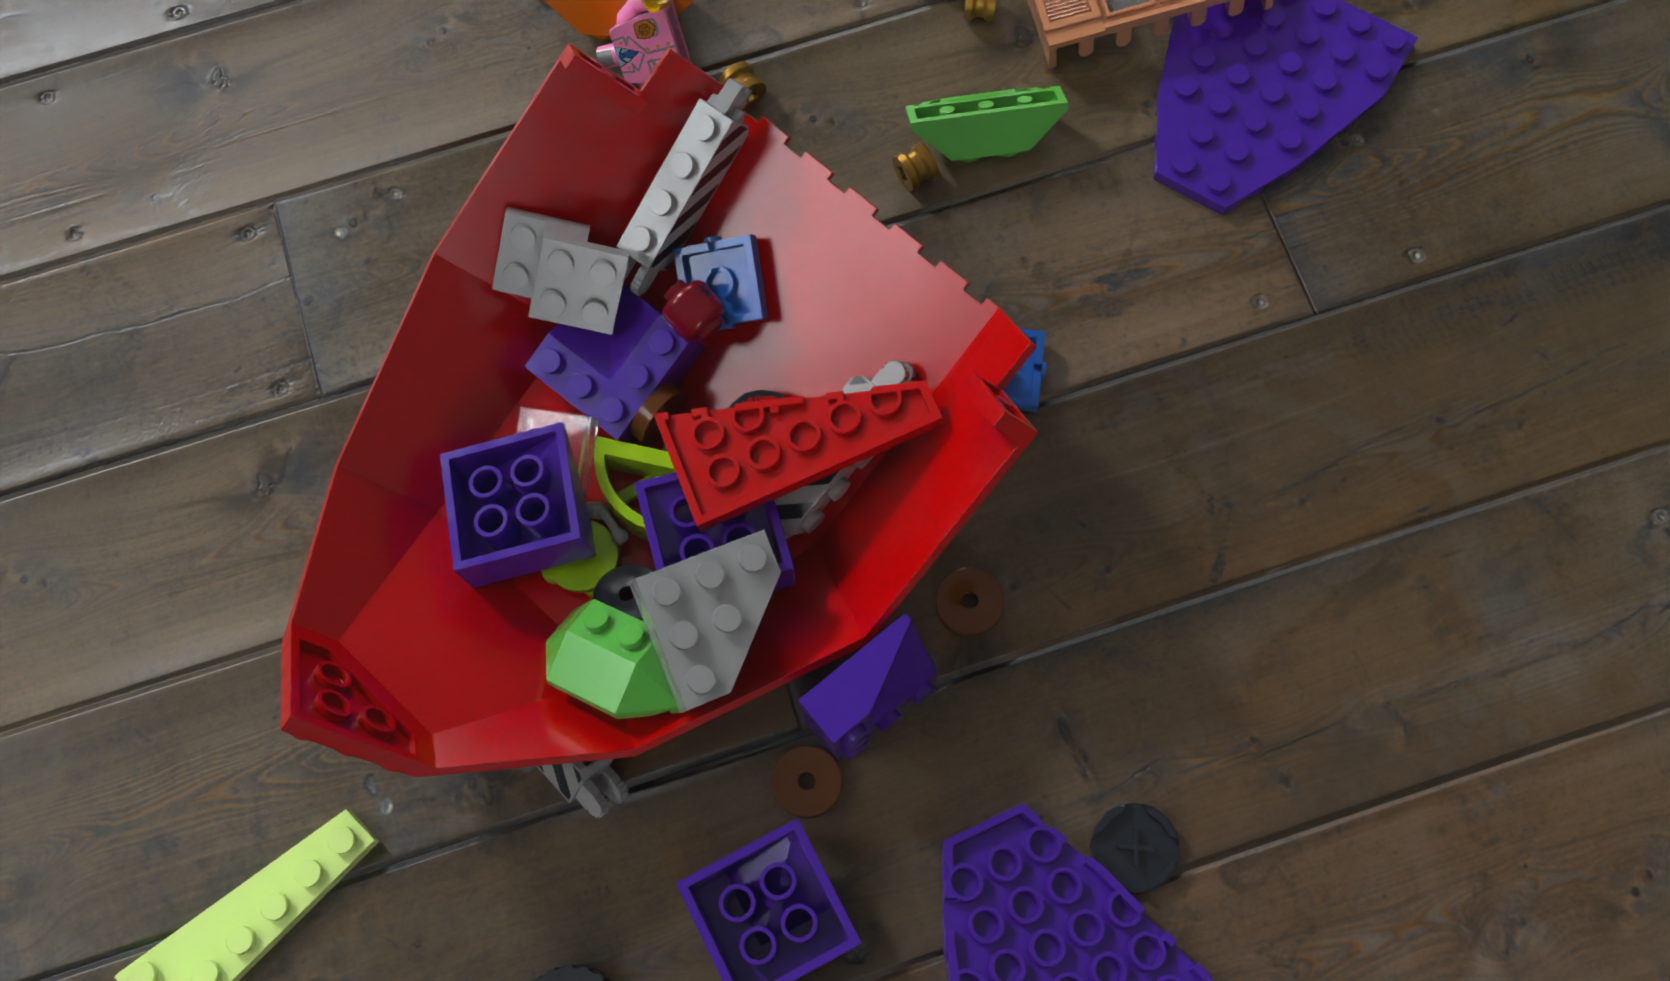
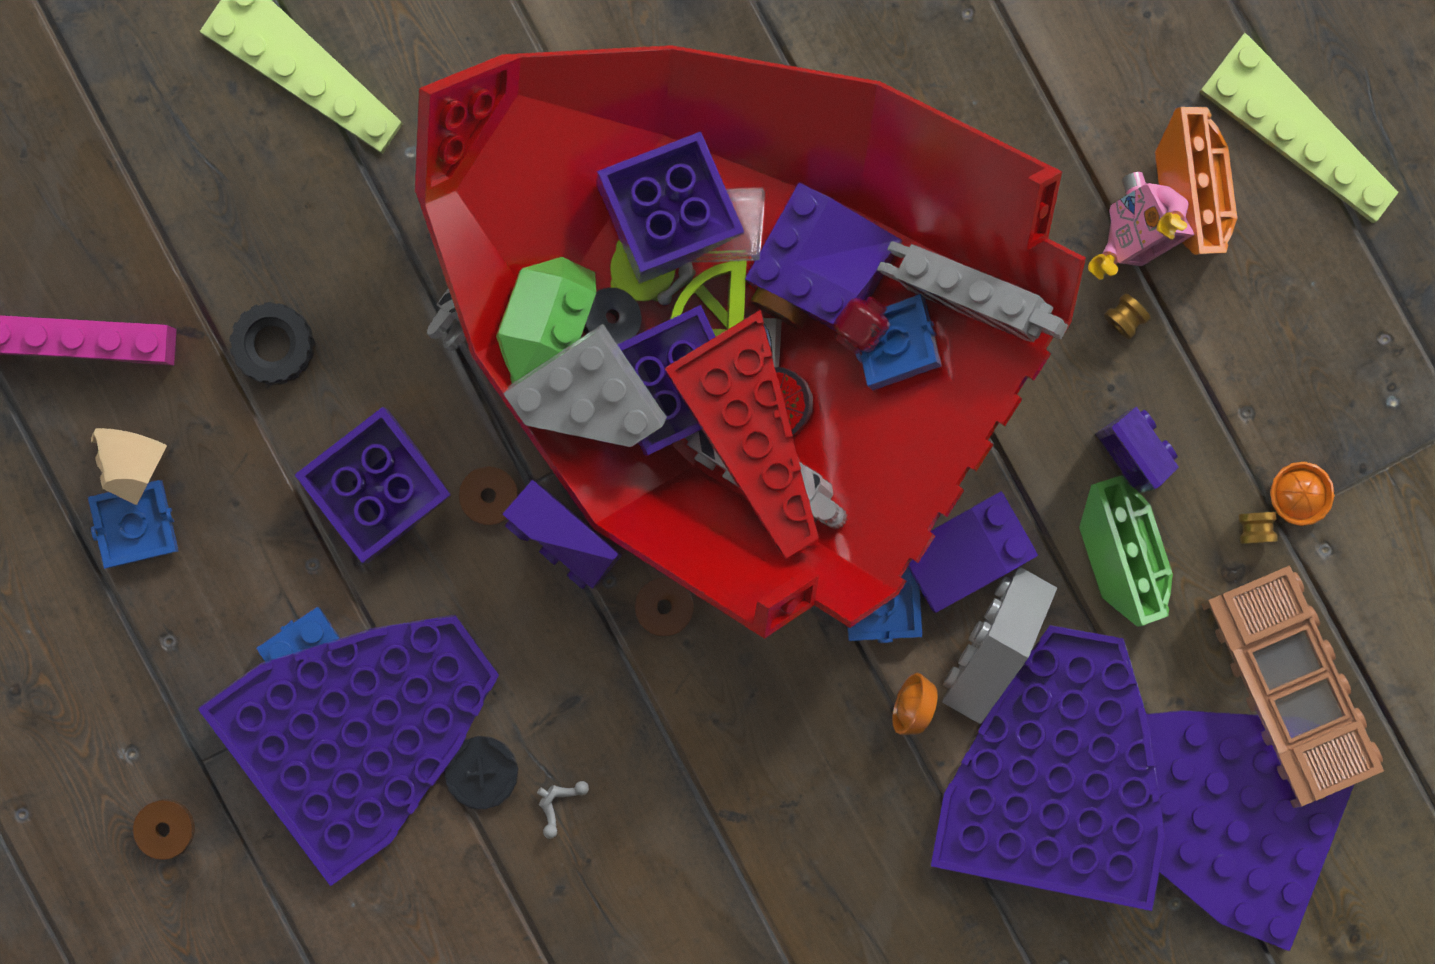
camera: 75 degrees right, 15 degrees up
(560, 270) = (889, 191): light grey bracket -> none
(878, 92) = (1138, 450): none -> dark purple slope
(915, 166) = (1069, 494): pearl gold wheel -> none
(967, 243) = (971, 552): none -> dark purple slope
(1069, 248) = (999, 644): none -> light grey brick
(1119, 348) = (914, 705): none -> orange hat
(1172, 772) = (550, 830): none -> light grey piece
(1220, 216) = (1061, 779): none -> dark purple wing

